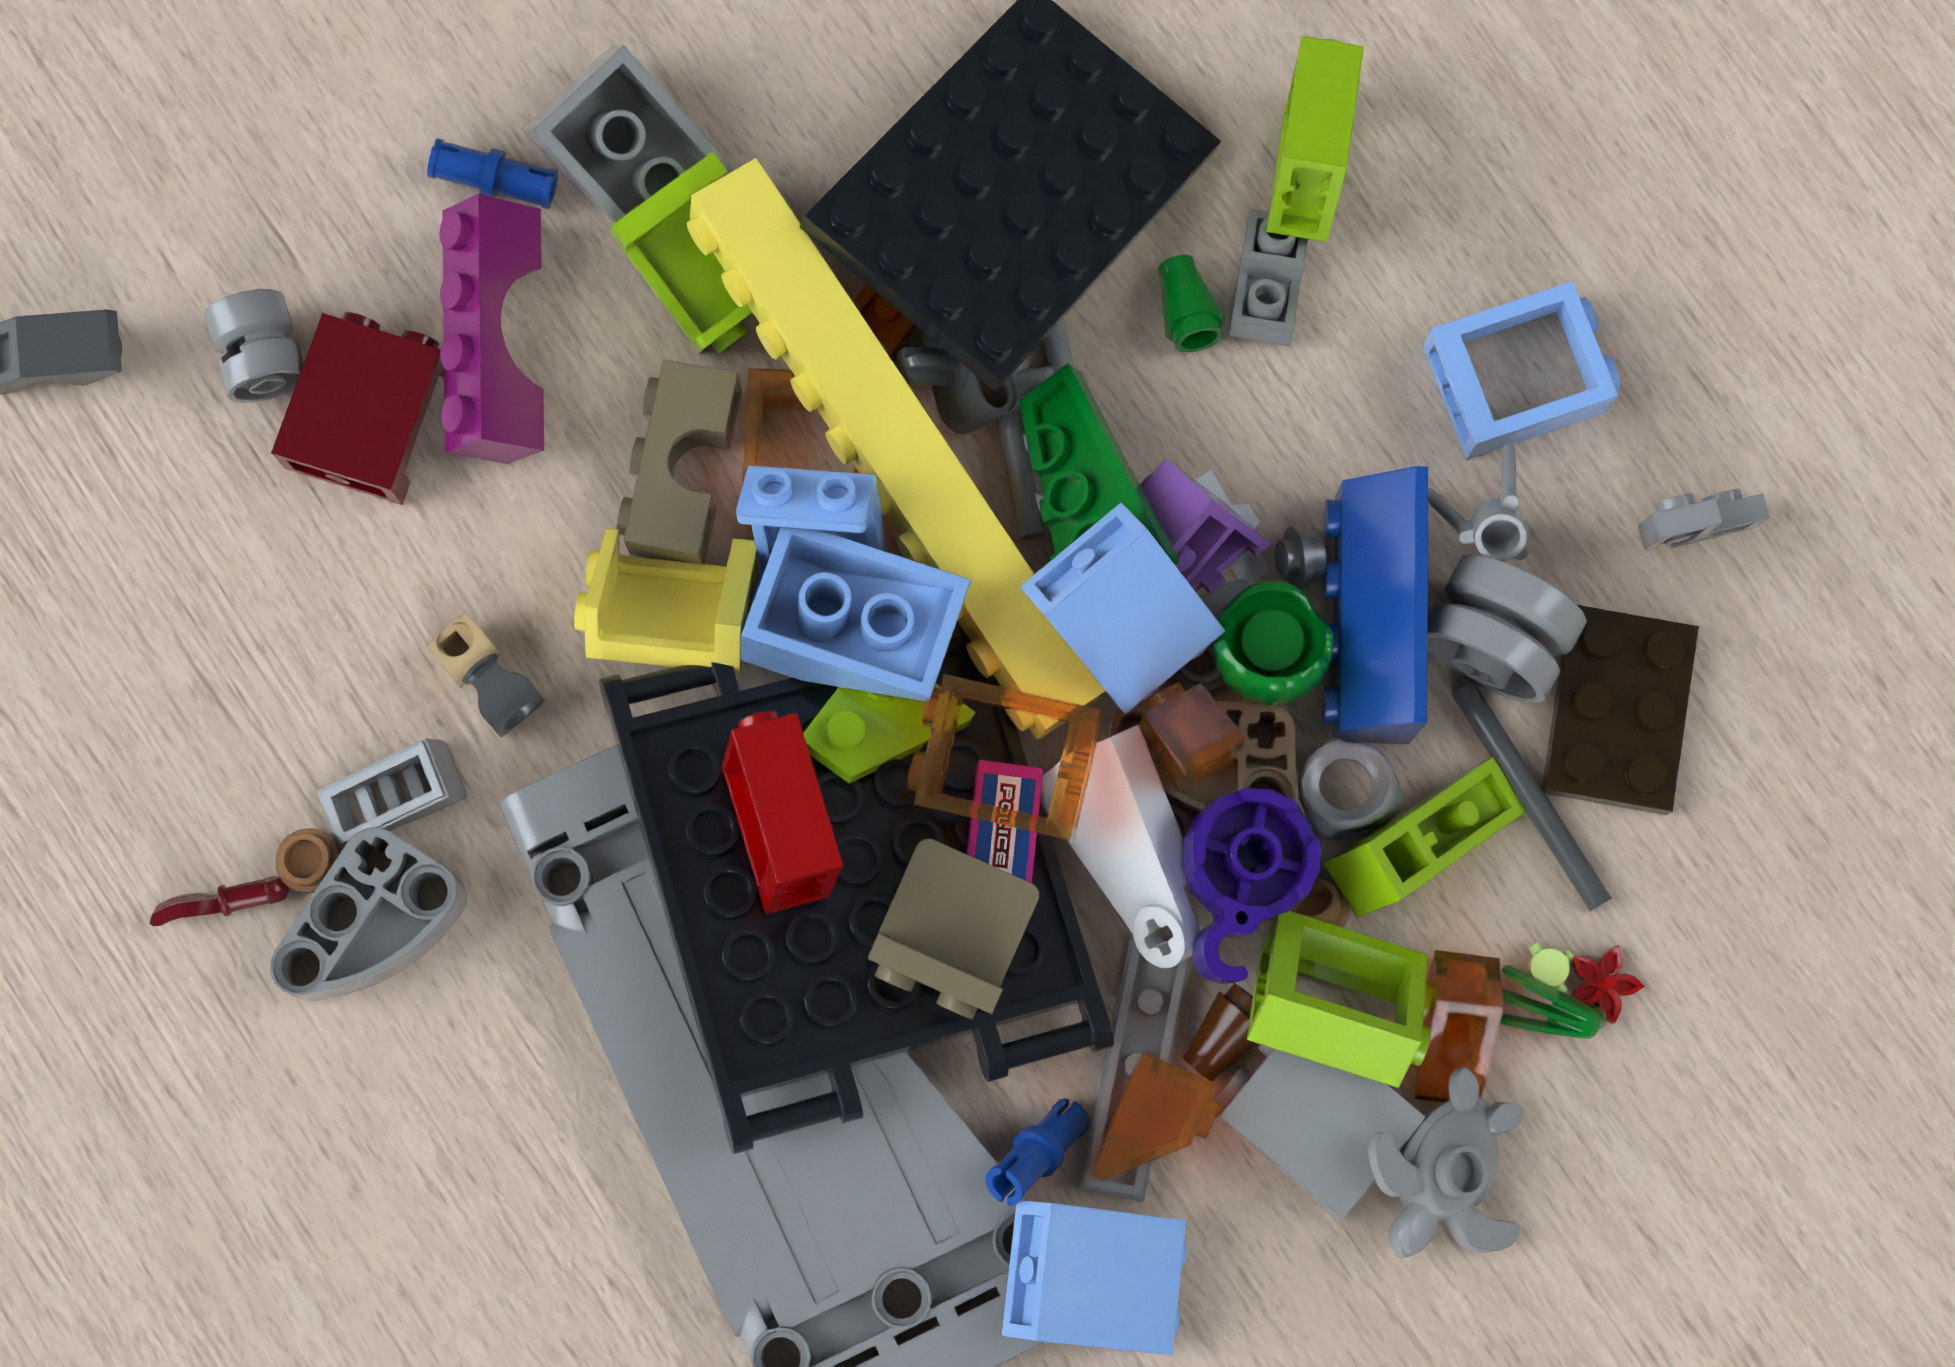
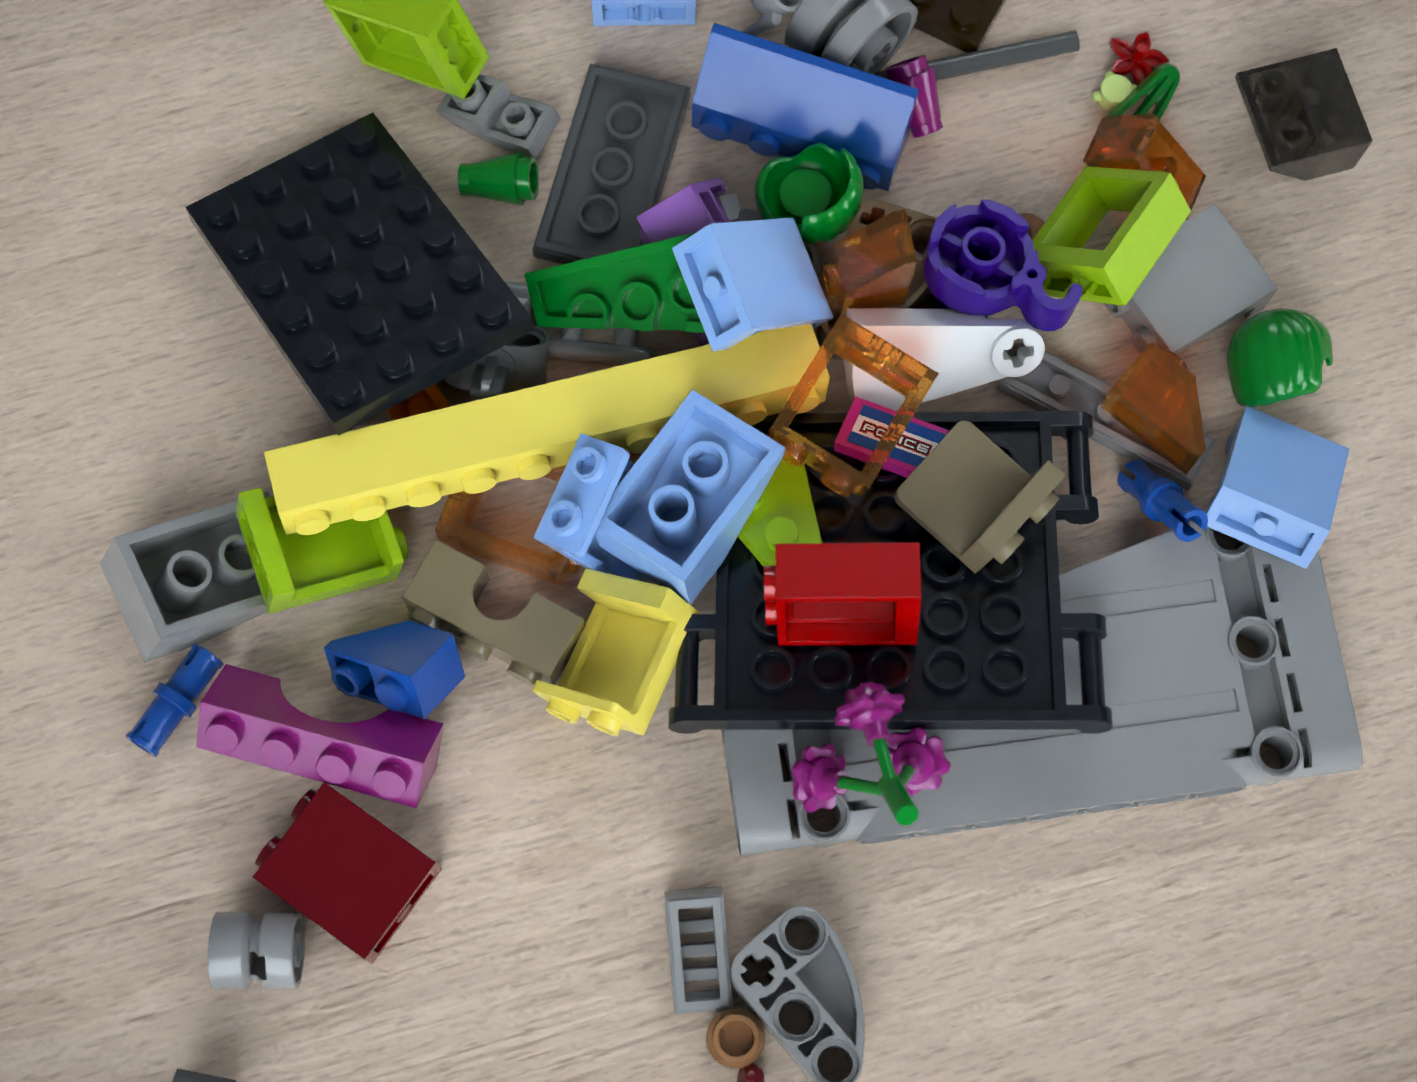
camera: 75 degrees left, 5 degrees down
(471, 657) = (602, 843): leg -> none
(591, 385) = (397, 666): none -> blue slope
(594, 855) = (906, 765): none -> magenta plant
(1222, 1034) = (1101, 336): reddish brown cone -> none
(1249, 421) = (611, 164): none -> dark grey tile
(1257, 1241) = (1277, 357): none -> green piece
(1300, 556) = (737, 160): flat silver plate -> none
(1377, 810) = (942, 152): light grey piece -> none
(1424, 839) = (993, 142): lime slope -> none
(1447, 1171) = (1258, 206): light grey animal -> none
(1452, 732) = (918, 74): none -> magenta cone
(1583, 1194) = (1305, 115): none -> clear smoke slope

